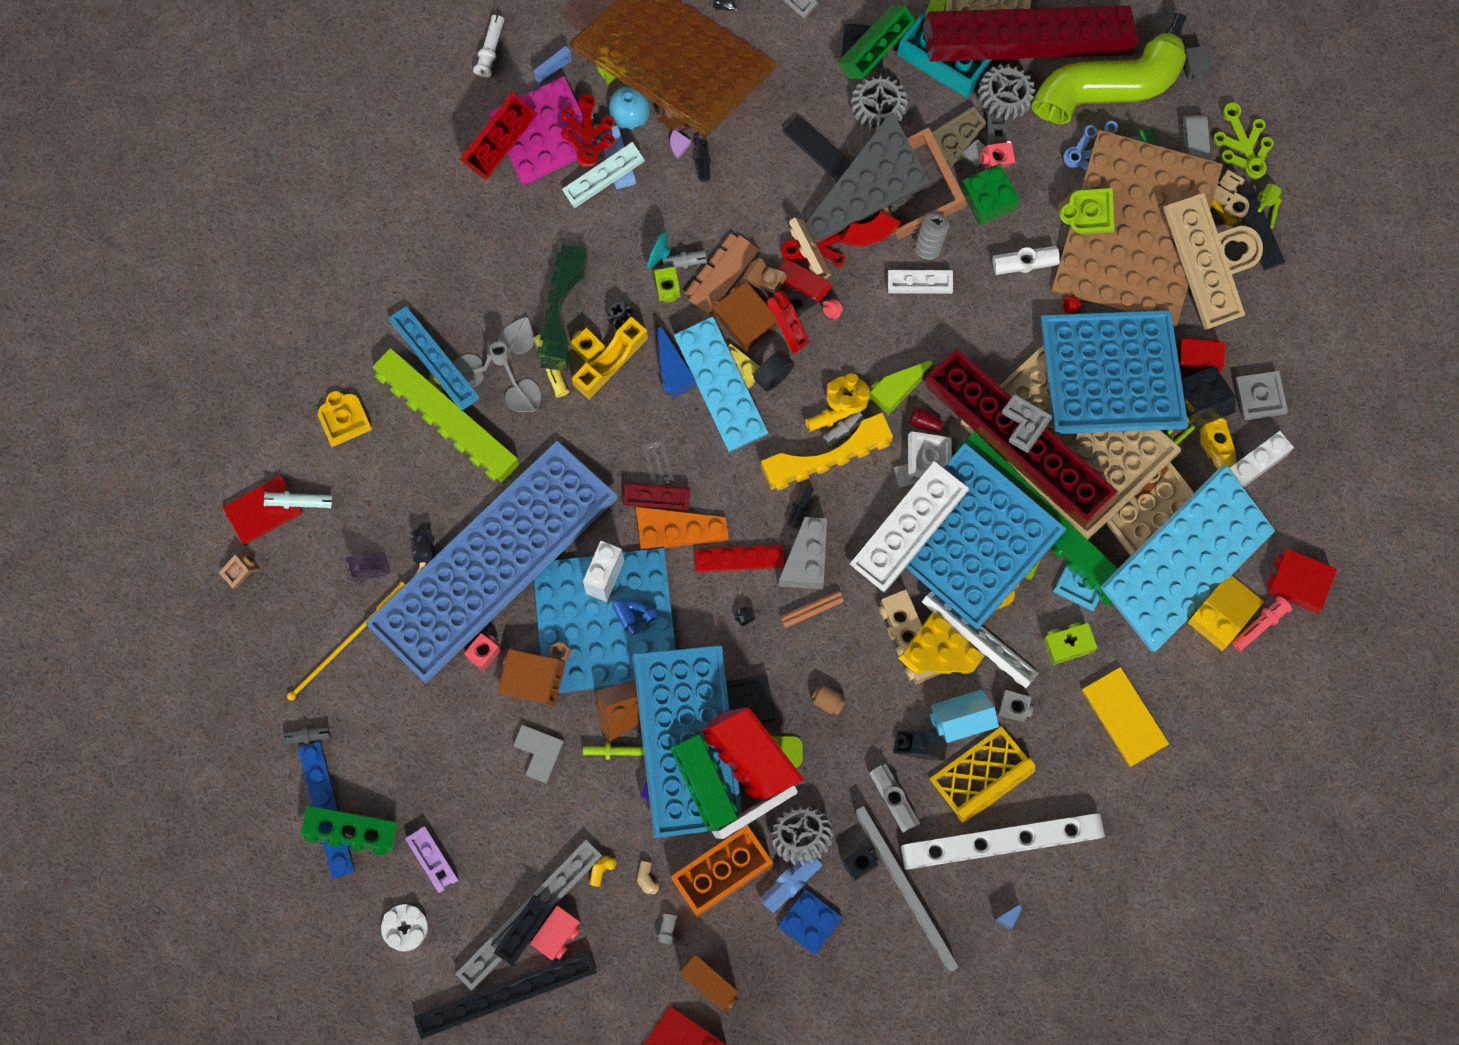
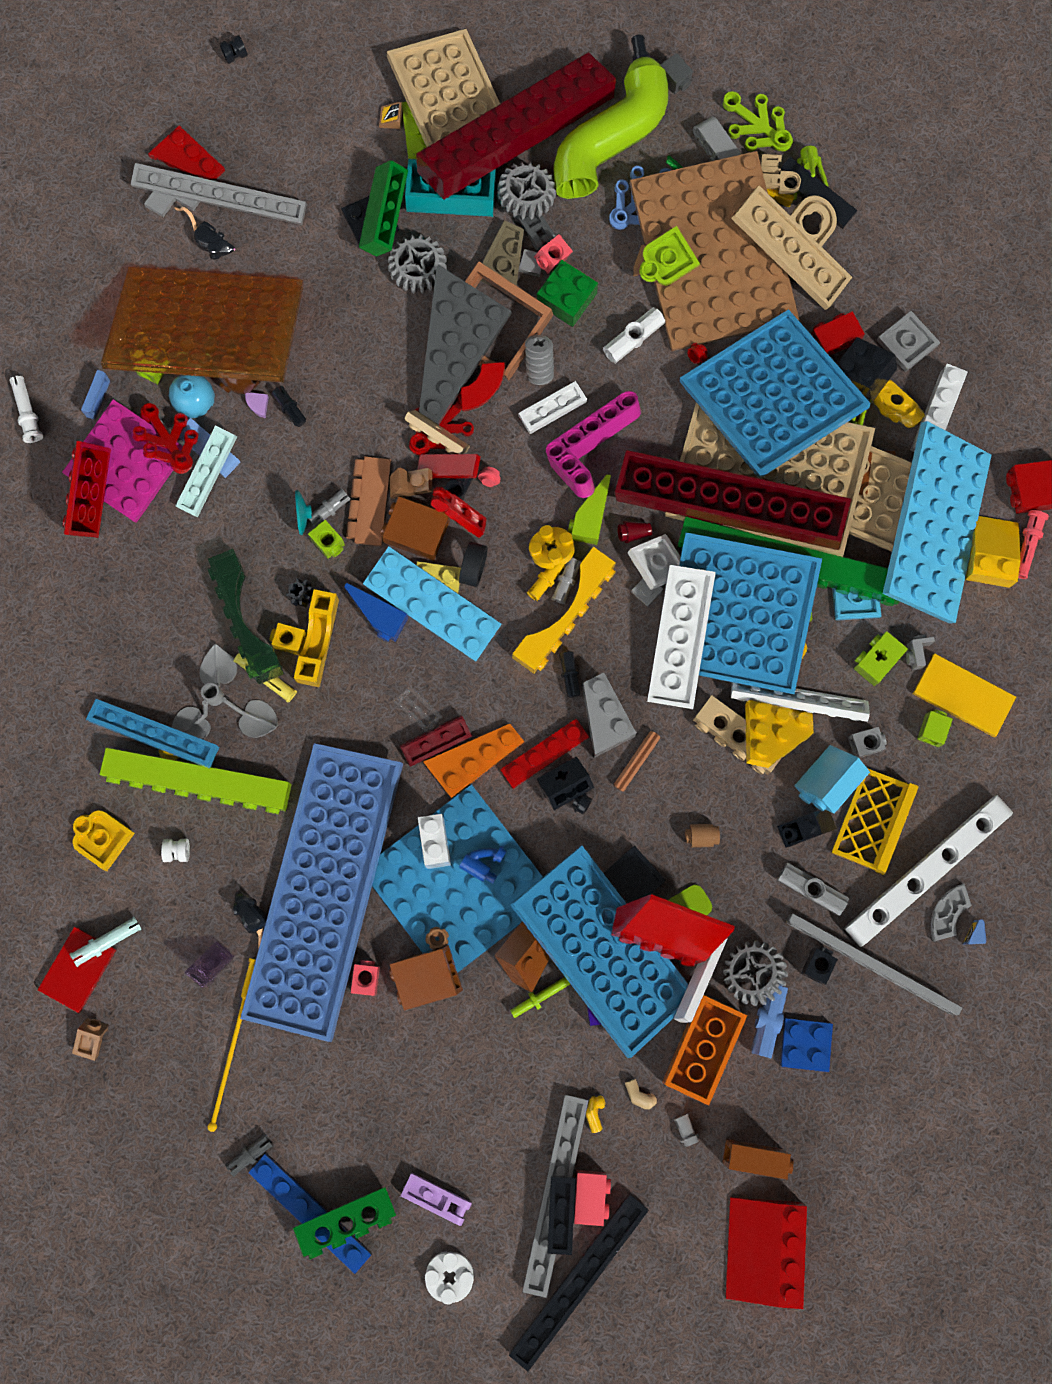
camera: 35 degrees left, 5 degrees up
(395, 461) = (175, 850): none -> white wheel
(544, 751) = (476, 1033): light grey tile -> none
(703, 782) = (643, 981): green brick -> none
(740, 590) = (565, 783): none -> black brick
(817, 148) = (387, 337): black tile -> none
(935, 320) = (589, 433): none -> dark pink beam
(997, 886) = (947, 912): none -> light grey tile
(1031, 422) = (734, 477): light grey tile -> none
(1081, 728) = (935, 728): none -> lime brick
(1101, 658) = (915, 653): none -> light grey bracket

